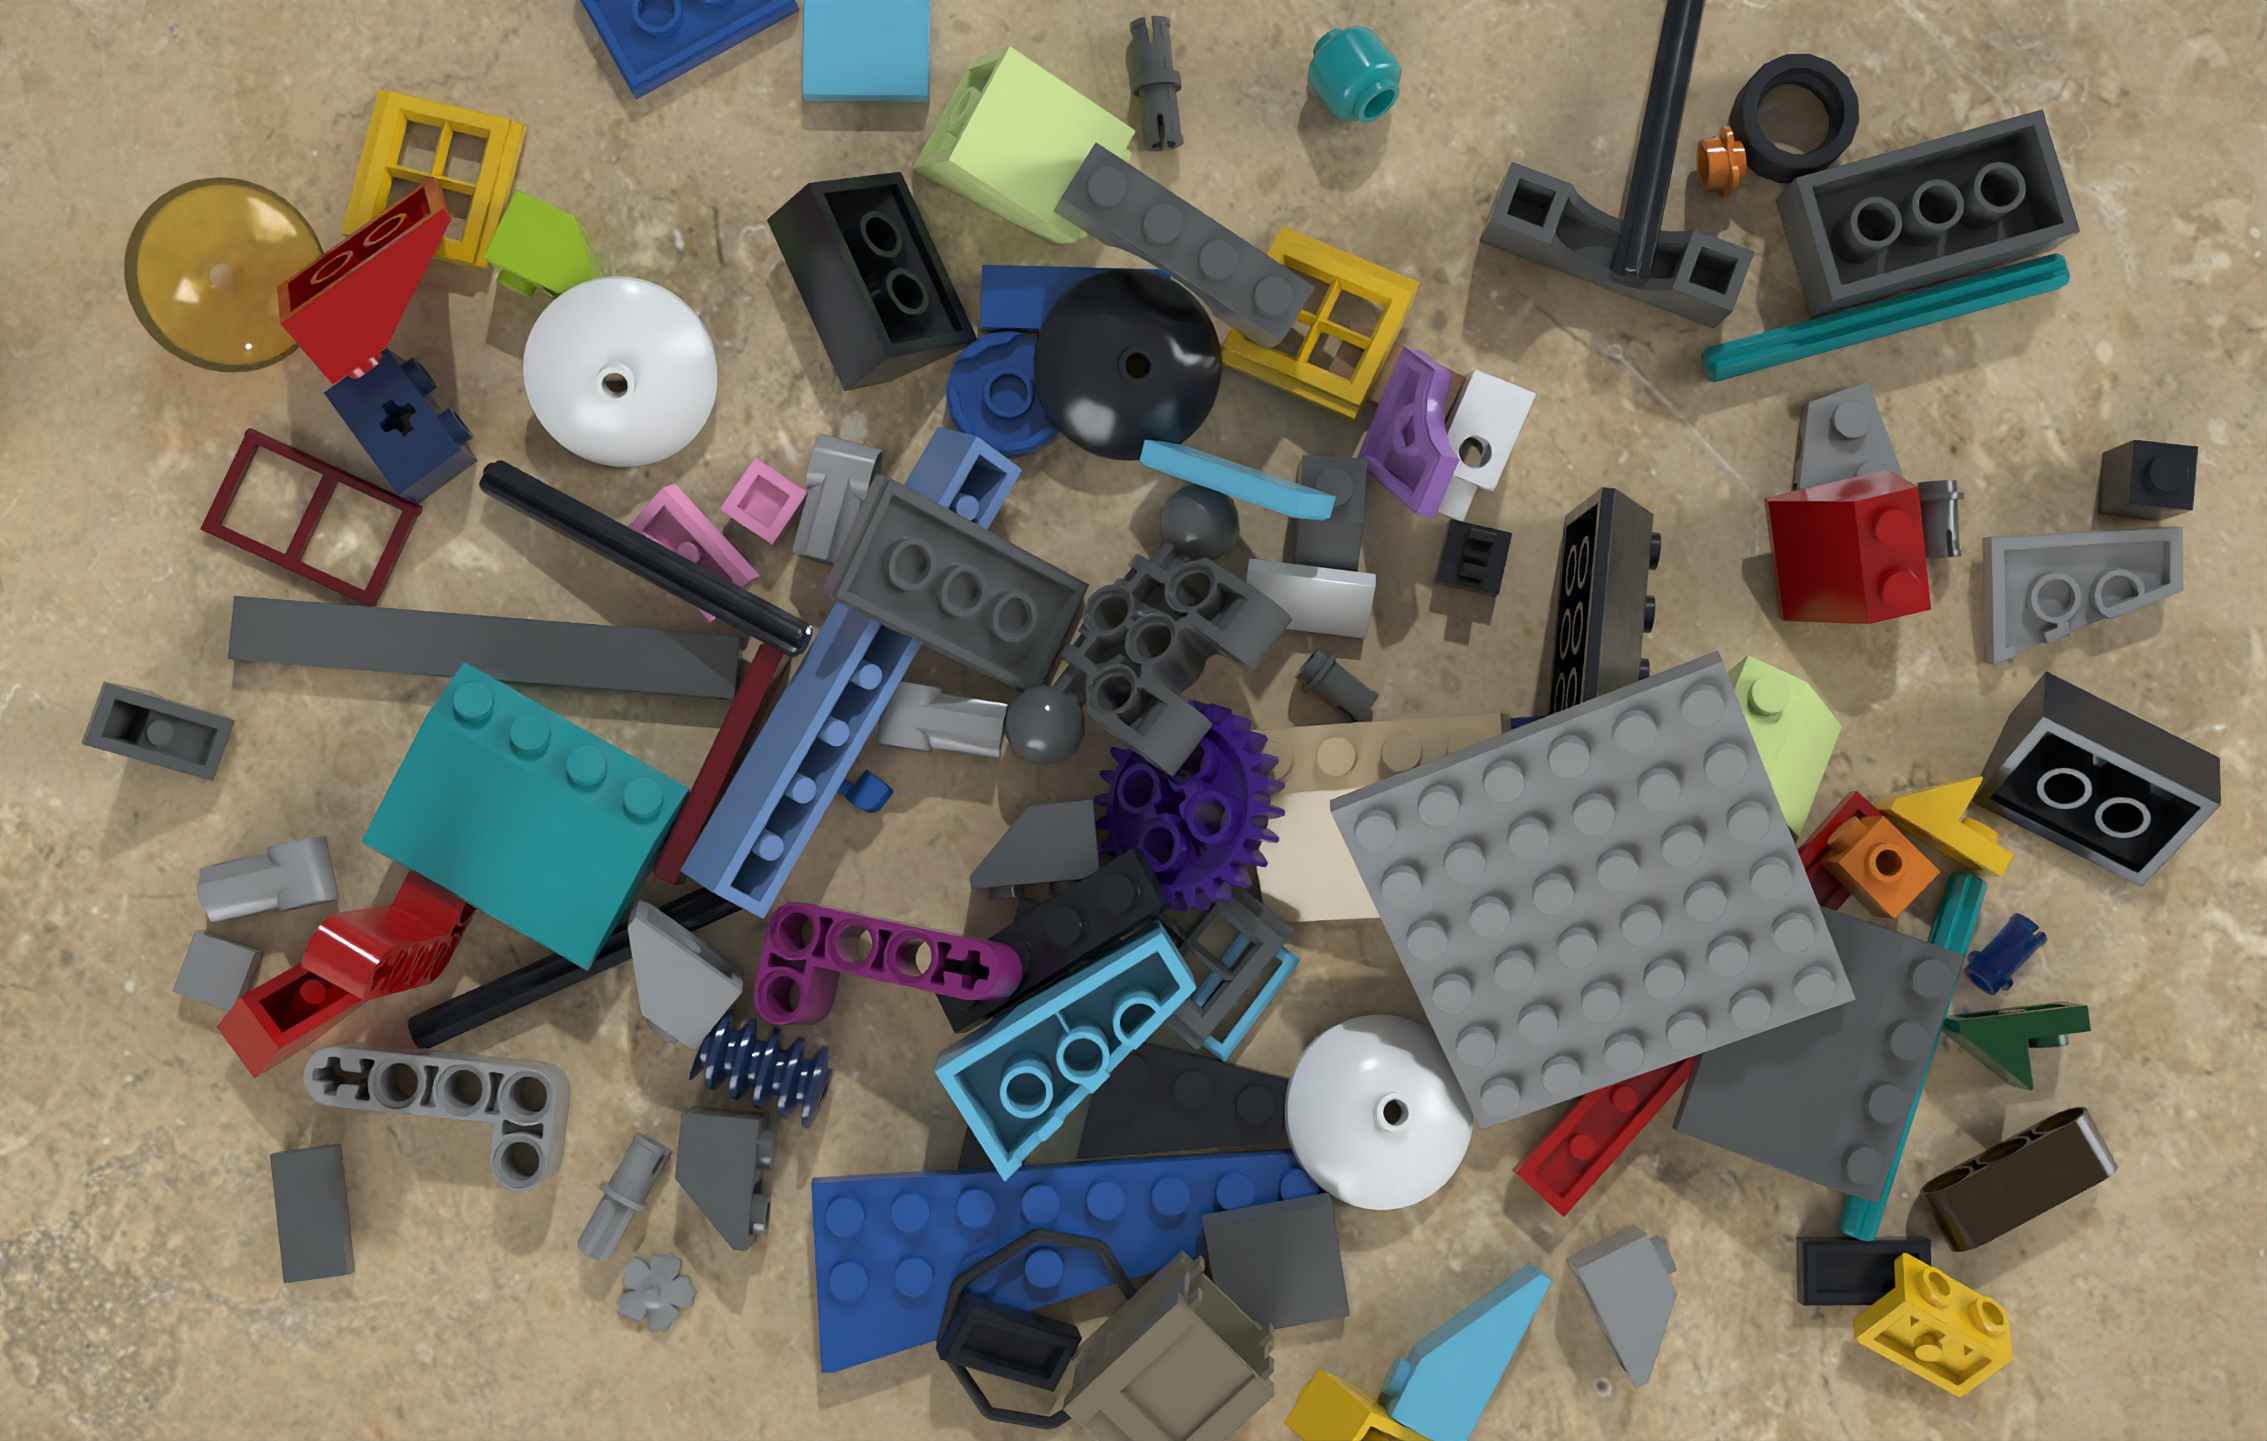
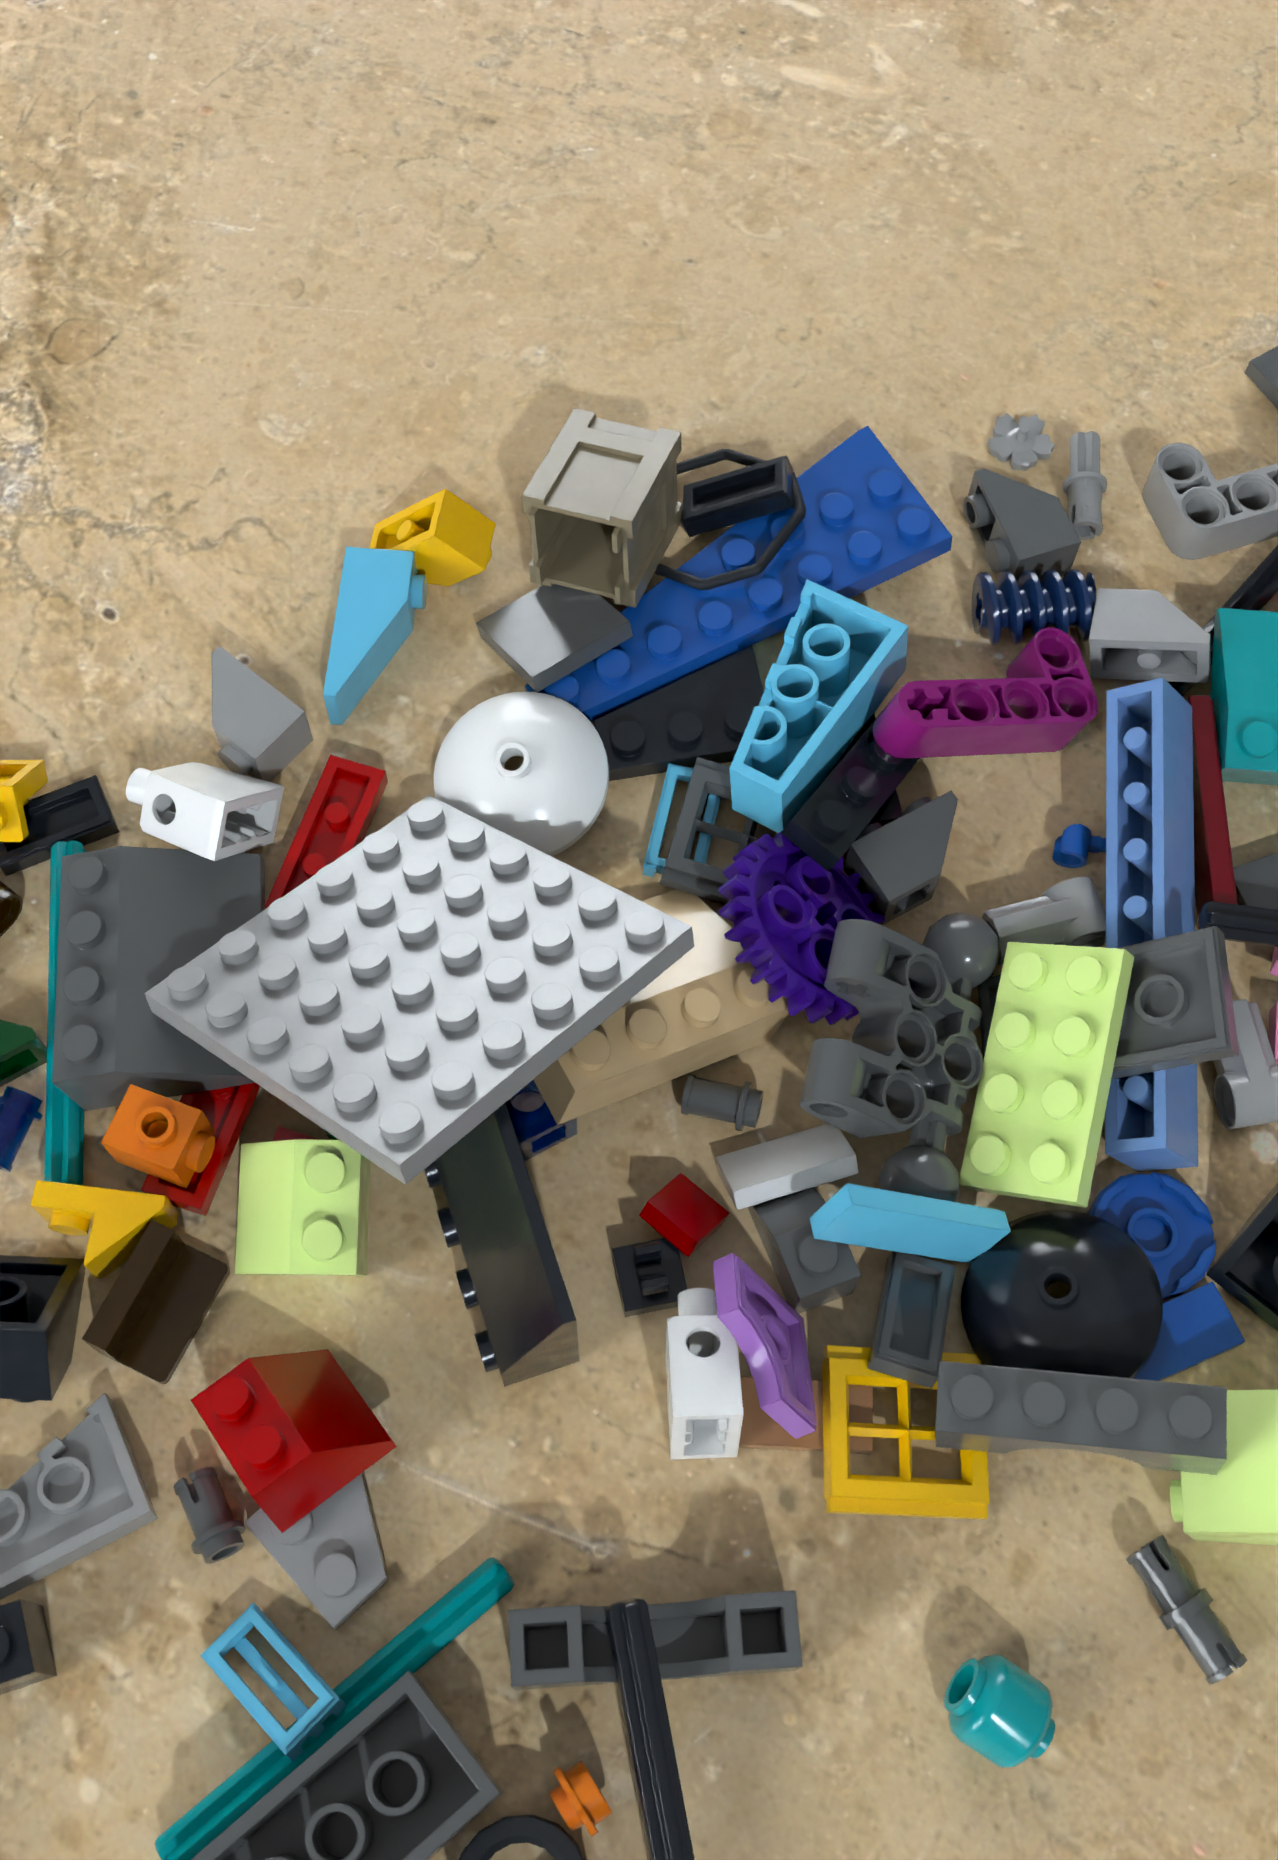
camera: 155 degrees right, 20 degrees down
(1035, 564) = (1047, 1072): none -> yellowish green plate
(1266, 409) = (912, 1318): none -> dark grey tile
(1421, 595) = (684, 1214): none -> red tile
(1715, 1201) = (206, 808): none -> white torso
(1909, 366) = (309, 1720): none -> medium azure tile
(1920, 726) = (156, 1304): none -> dark brown panel

